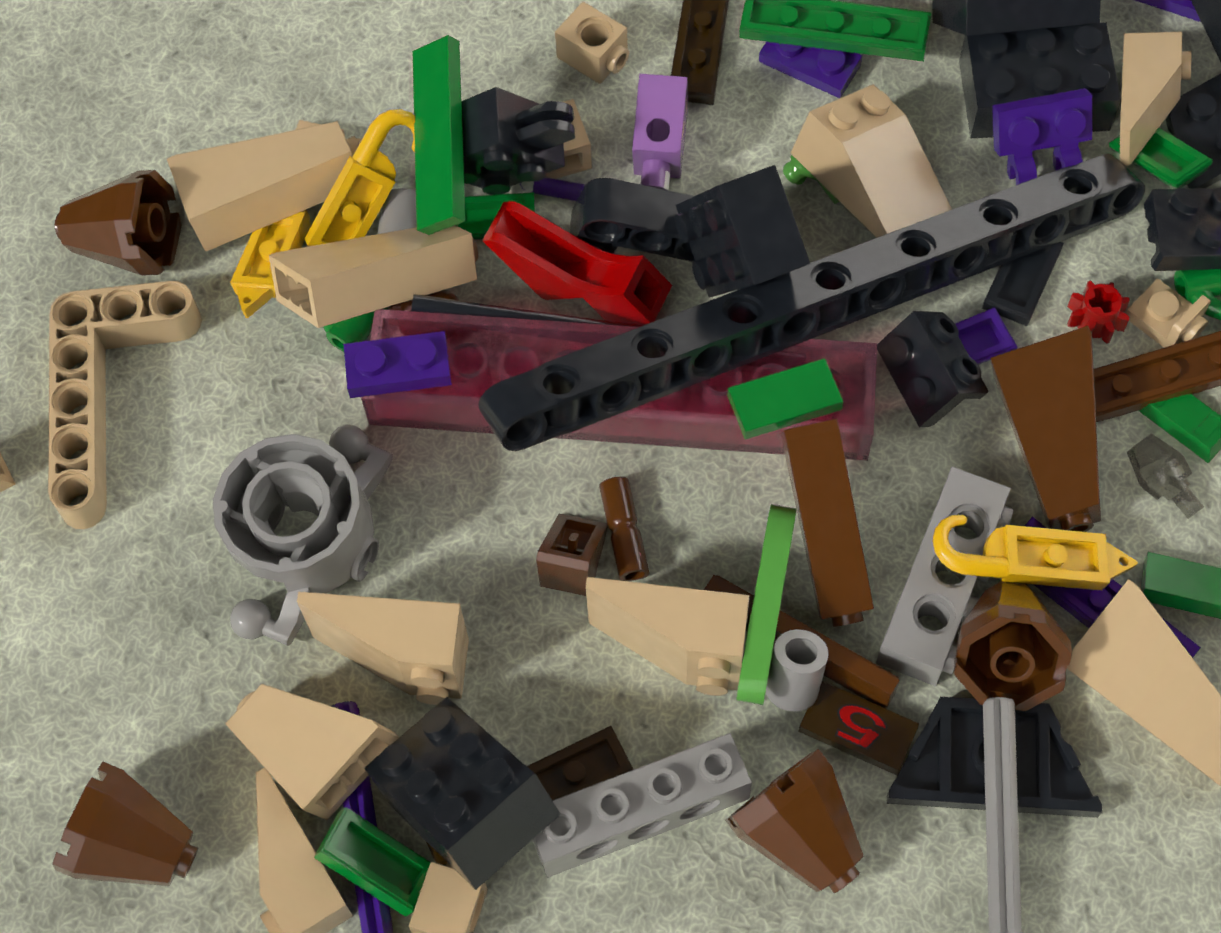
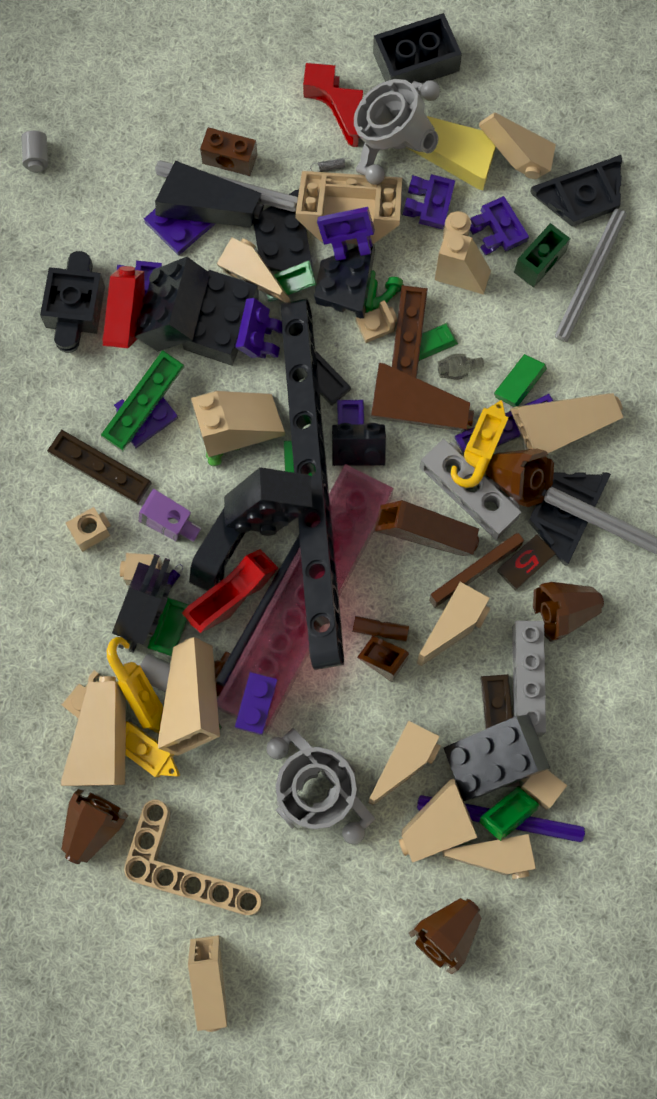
camera: 70 degrees left, 10 degrees up
(438, 135) = (133, 630): green tile -> none
(766, 605) = (458, 573): bright green beam -> none
(785, 398) = (359, 520): green tile -> none
(796, 670) = (495, 577): light grey brick -> none
(1100, 309) = (362, 345): red gear -> none

